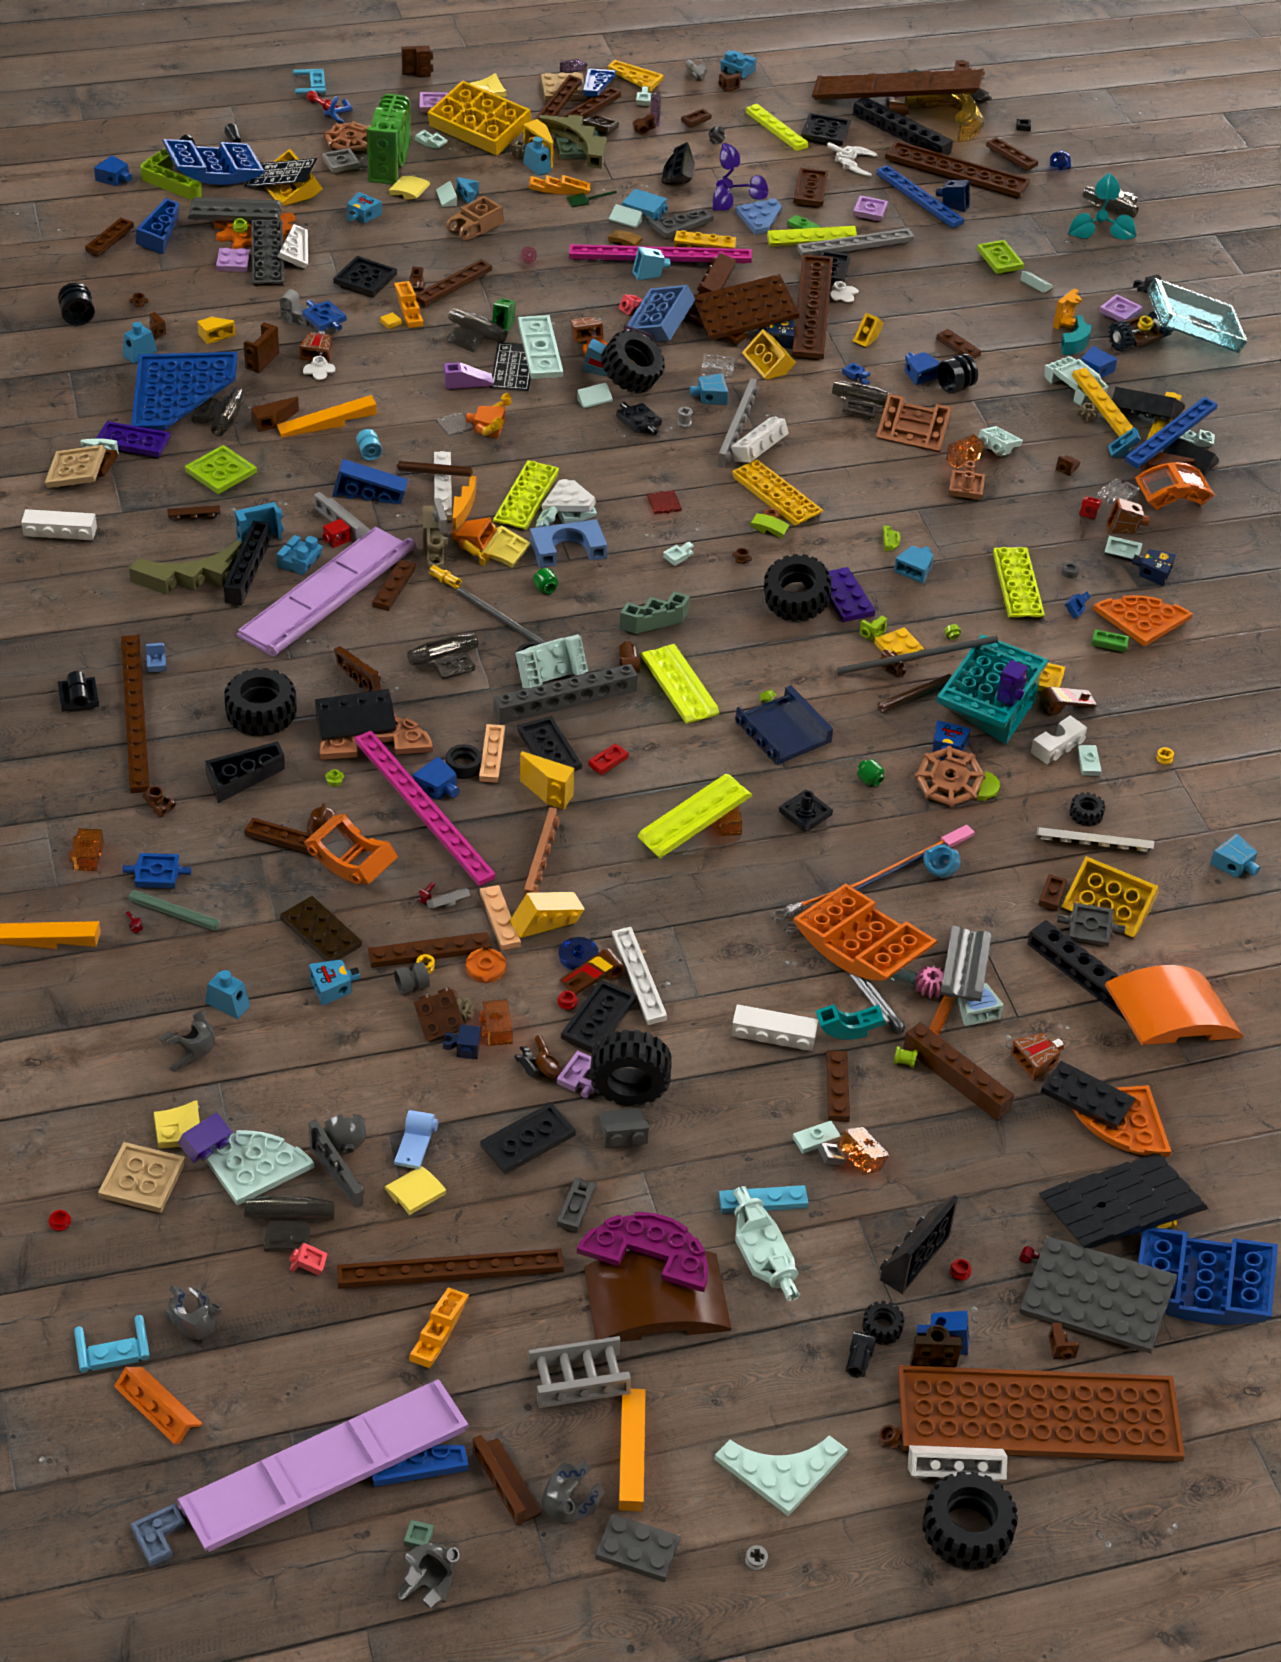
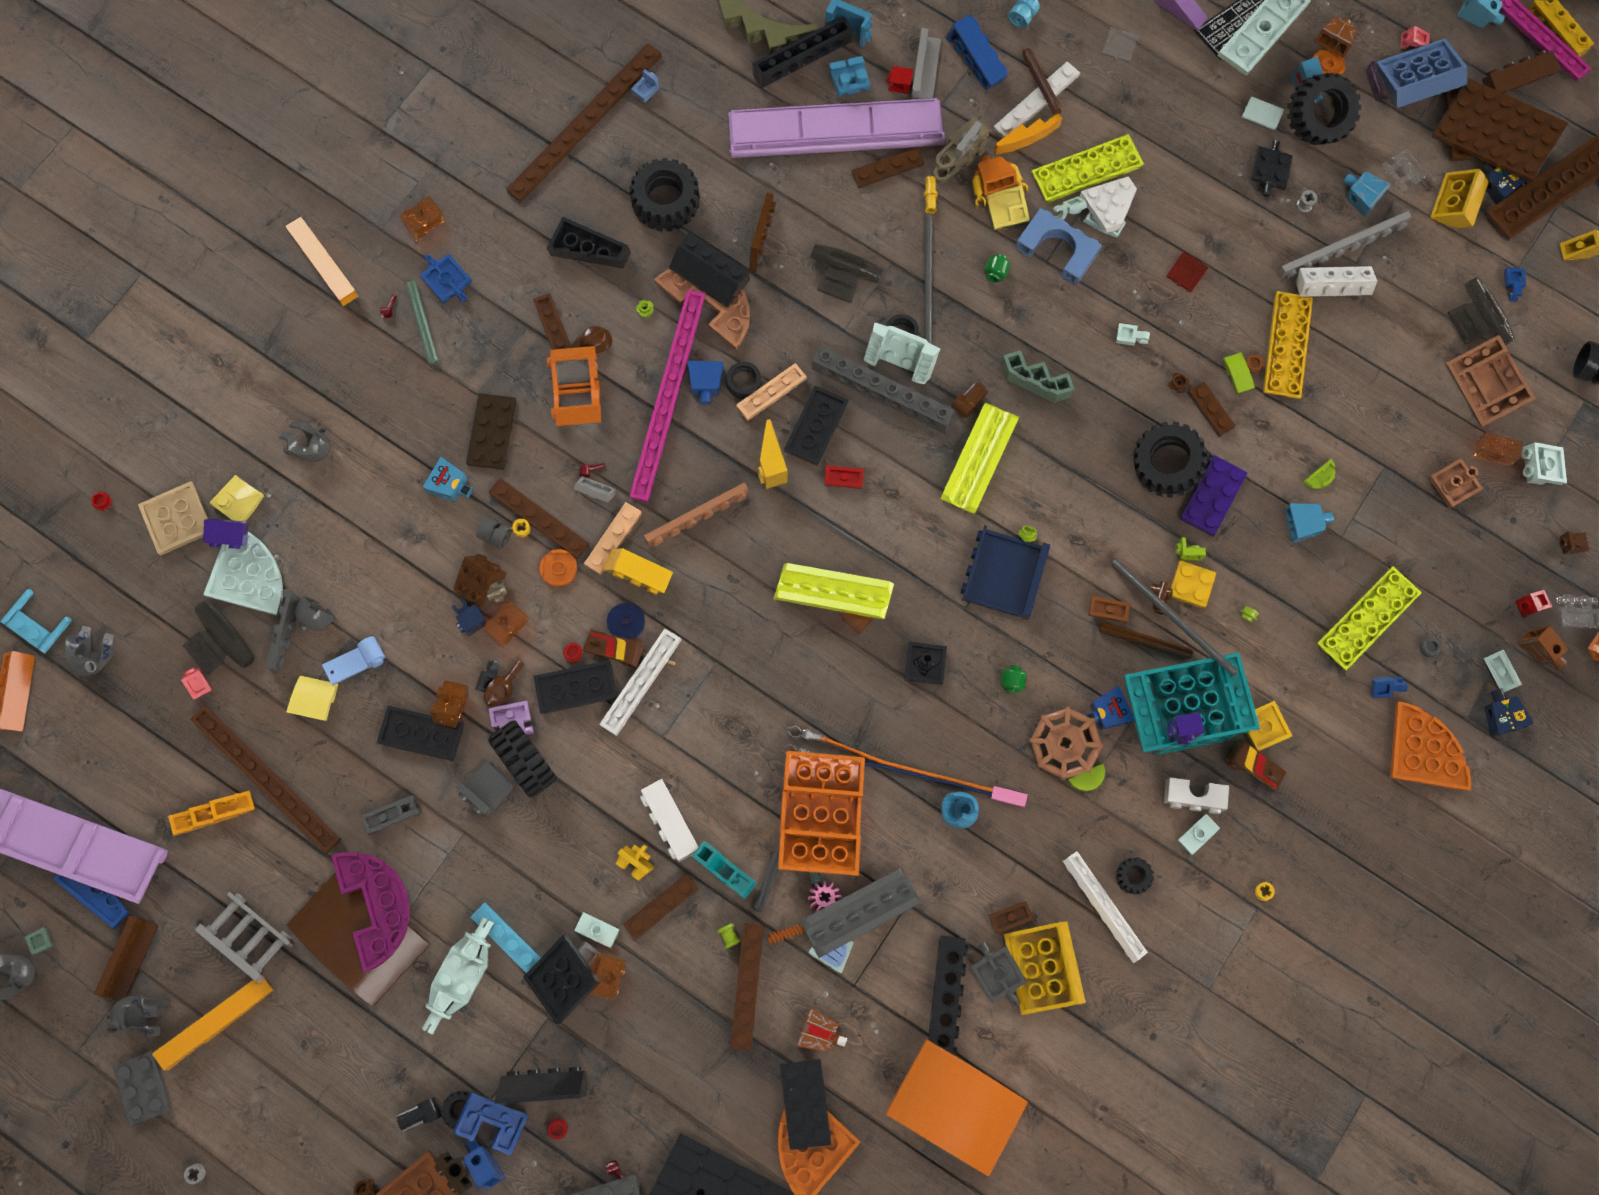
camera: 50 degrees right, 30 degrees up
(78, 692) = (564, 70): black plate -> none
(157, 801) = (509, 223): reddish brown plate -> none
(227, 994) = (370, 426): dark azure torso -> none
(490, 419) = (1148, 65): orange torso -> none
(526, 1096) = (449, 703): none -> clear orange brick
(772, 553) = (1211, 409): none -> reddish brown plate
(782, 1478) = (273, 1141): light aqua plate -> none
(784, 1068) = (638, 858): none -> yellow hips
(839, 1173) = (561, 979): none -> black plate
(871, 694) = (1109, 609): none -> dark orange plate
(904, 1295) = (483, 1109): none -> blue plate
(921, 367) = (1579, 326): blue torso -> none
(1110, 640) = (1367, 746): bright green plate -> none
(1235, 857) = (1189, 1036): dark azure torso -> none

